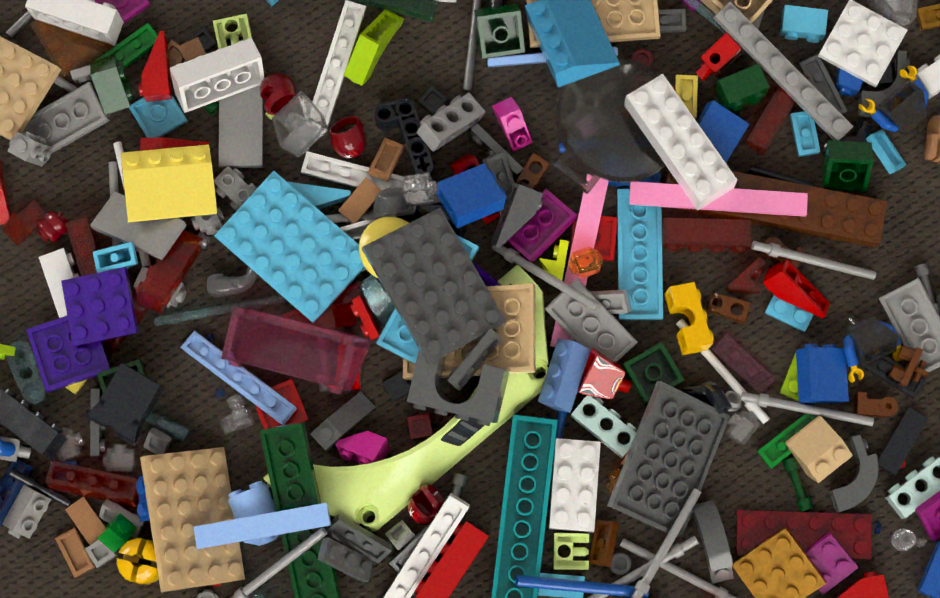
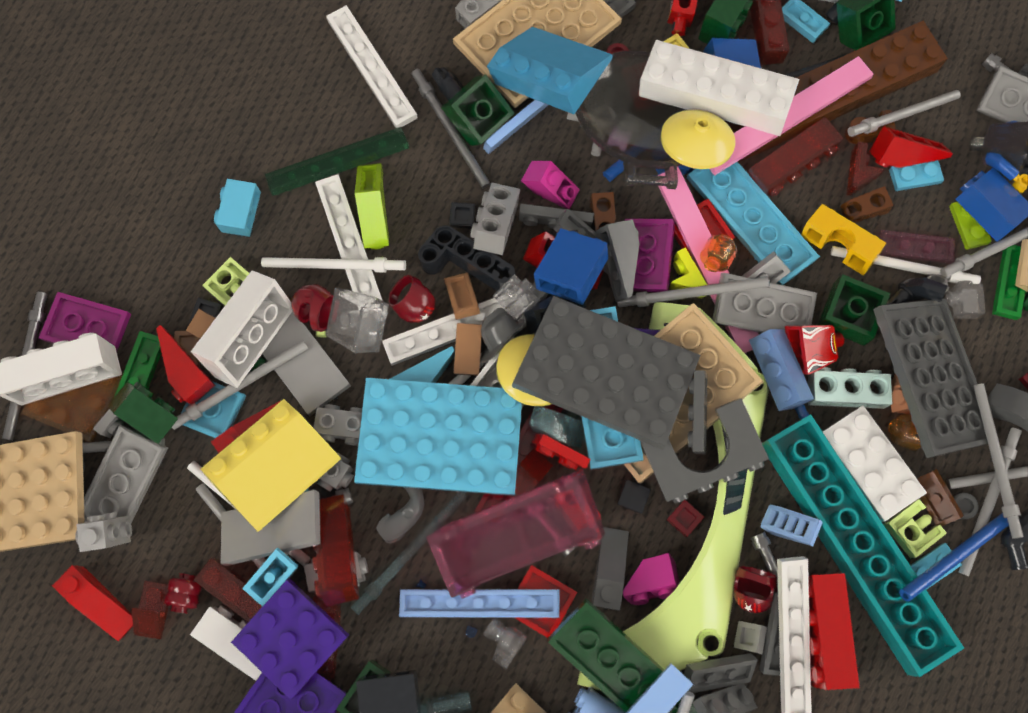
camera: 40 degrees left, 5 degrees down
(146, 108) = (195, 410): none -> light grey bar
(343, 95) = (379, 264): none -> white bar
(484, 481) = (776, 517): none -> light blue slope
(629, 178) = (698, 139): none -> light yellow dish

